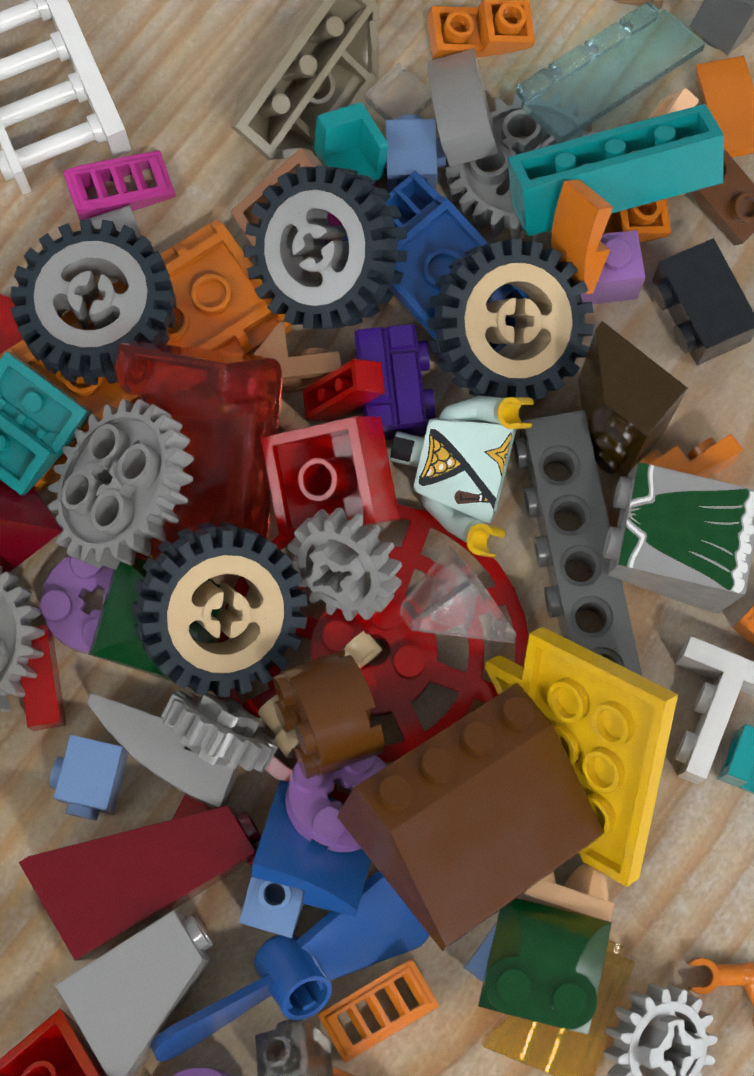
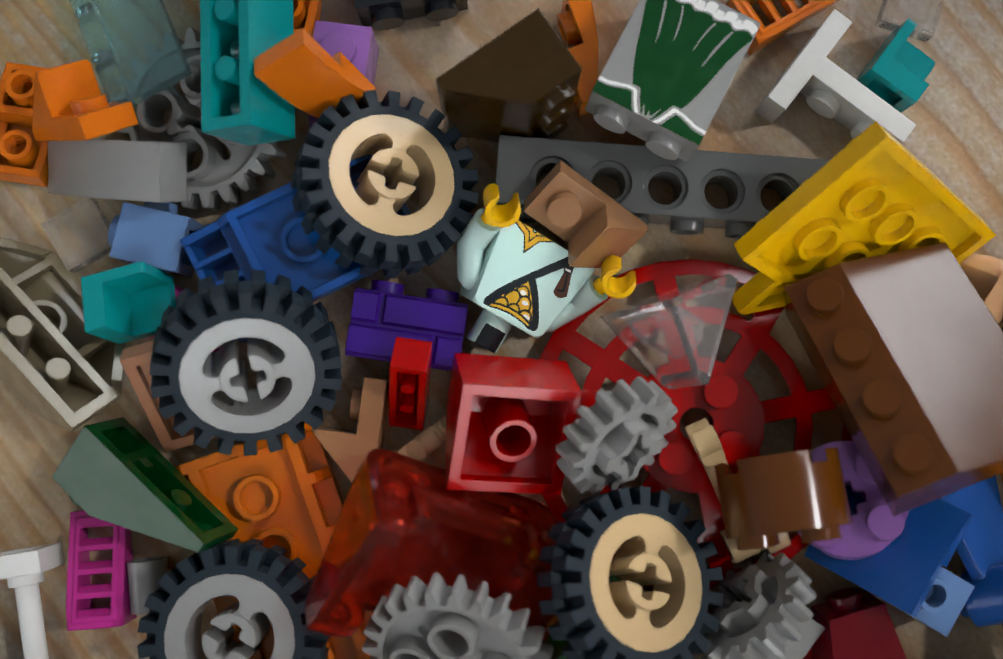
camera: 80 degrees left, 10 degrees up
(198, 187) = (132, 485): none -> dark green slope
(503, 58) = (72, 107): none -> orange slope
(530, 500) = (583, 217): none -> medium nougat slope

